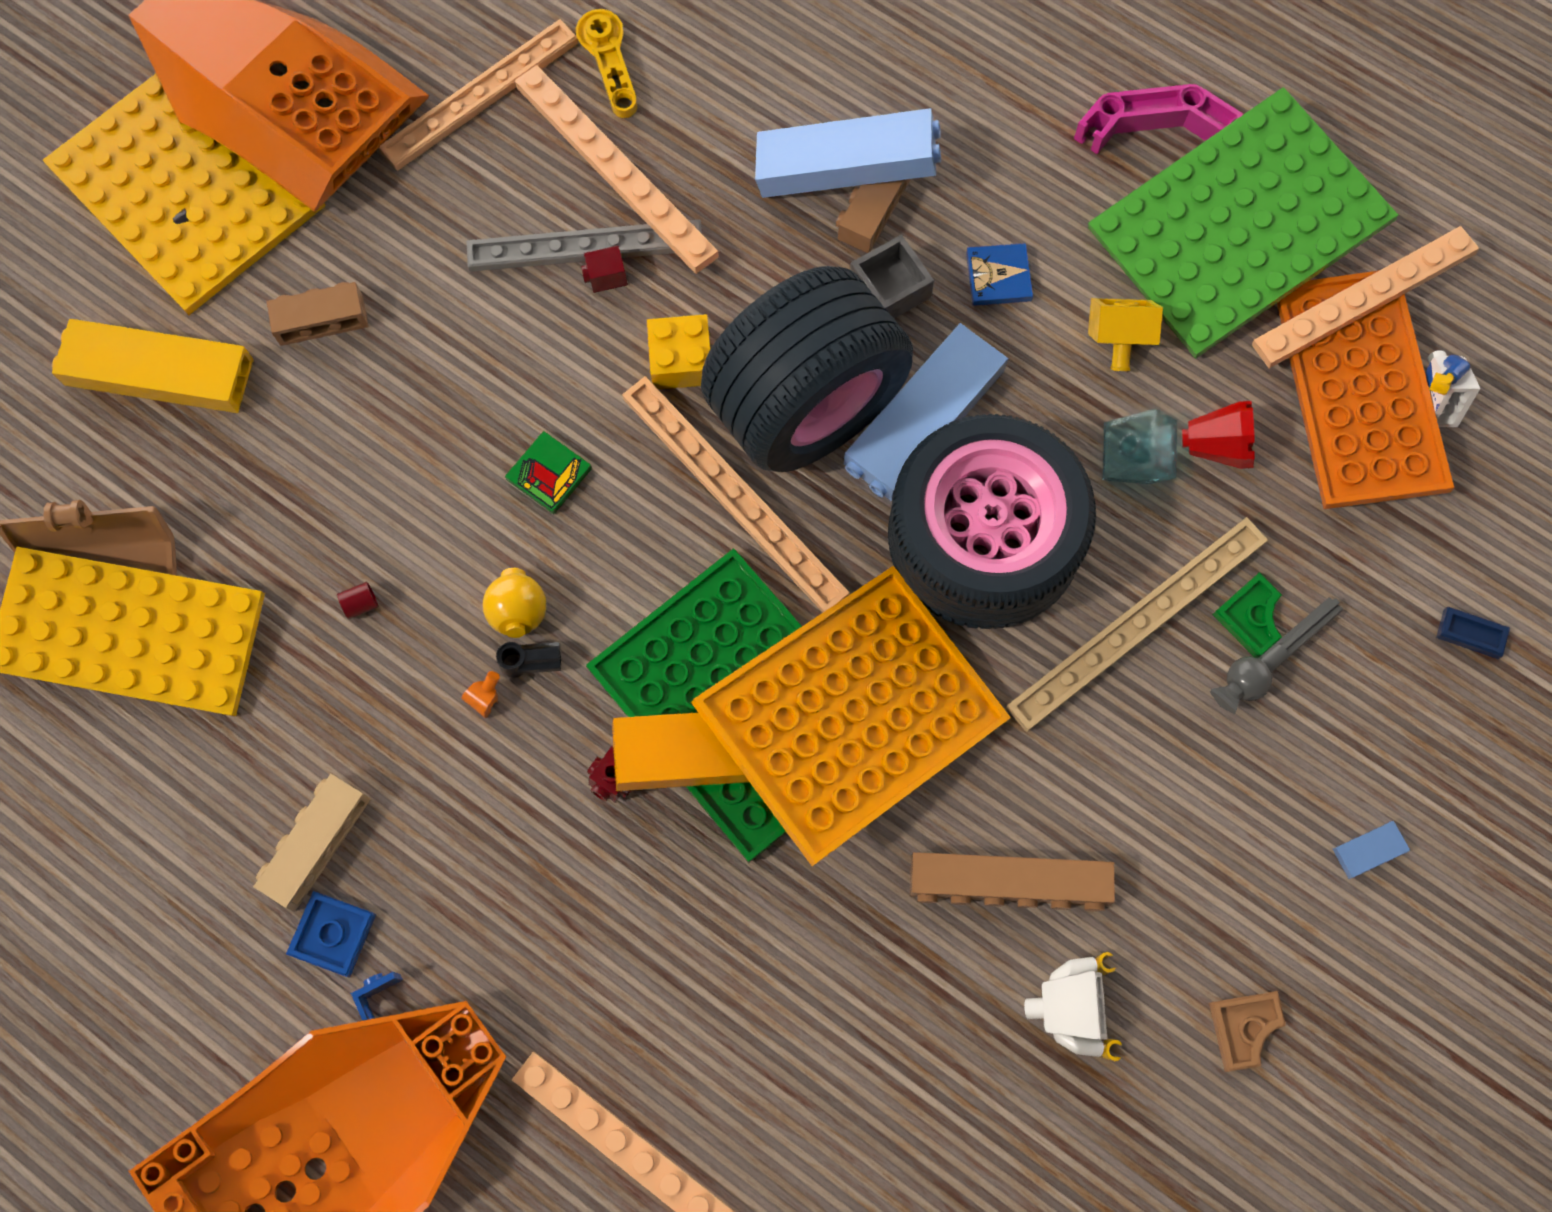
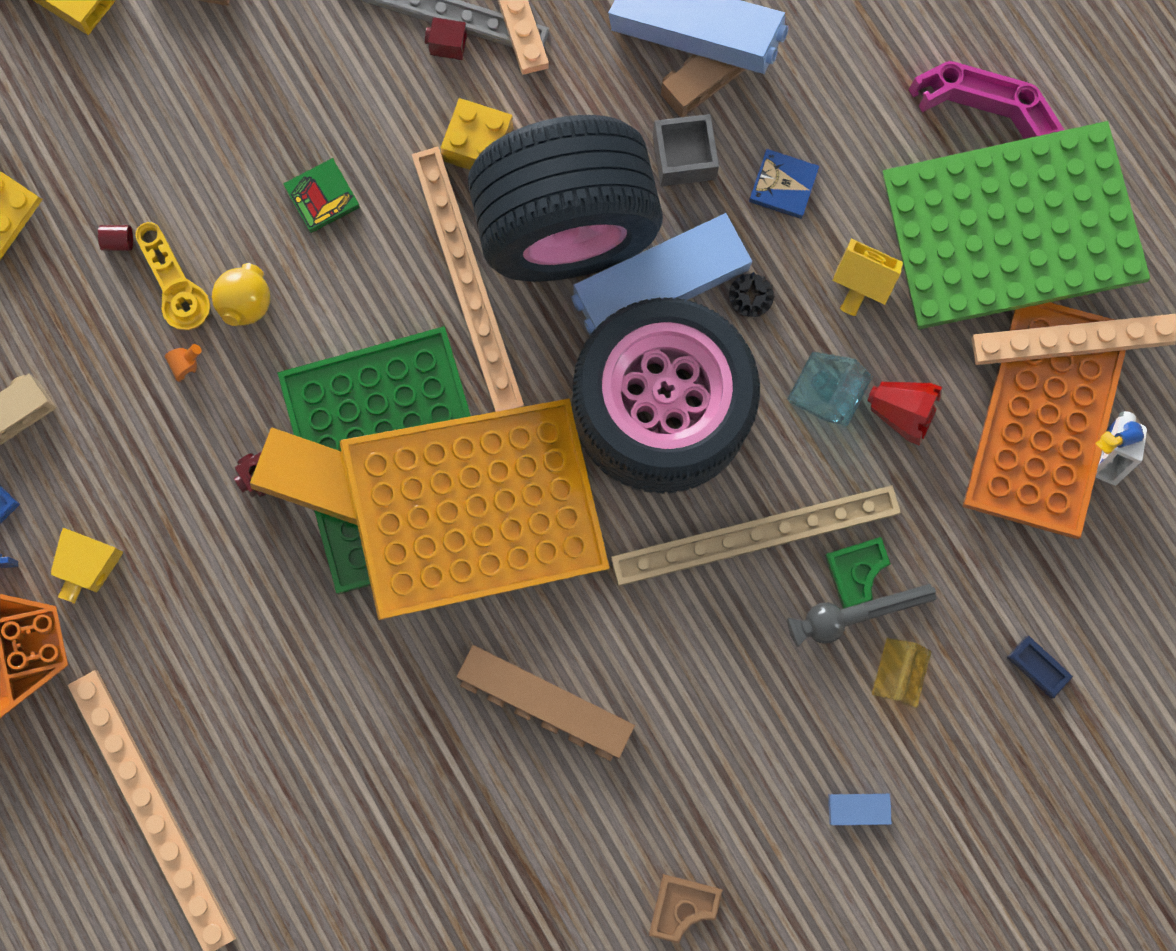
camera: 15 degrees right, 5 degrees up
(438, 621) = (174, 284): none -> yellow beam
(471, 946) = (82, 563): none -> yellow torso
(533, 658) = (236, 347): black piece -> none
(1014, 403) = (741, 301): none -> black gear
(1075, 1007) = (547, 828): white torso -> none
(1344, 695) = (902, 672): none -> clear yellow panel

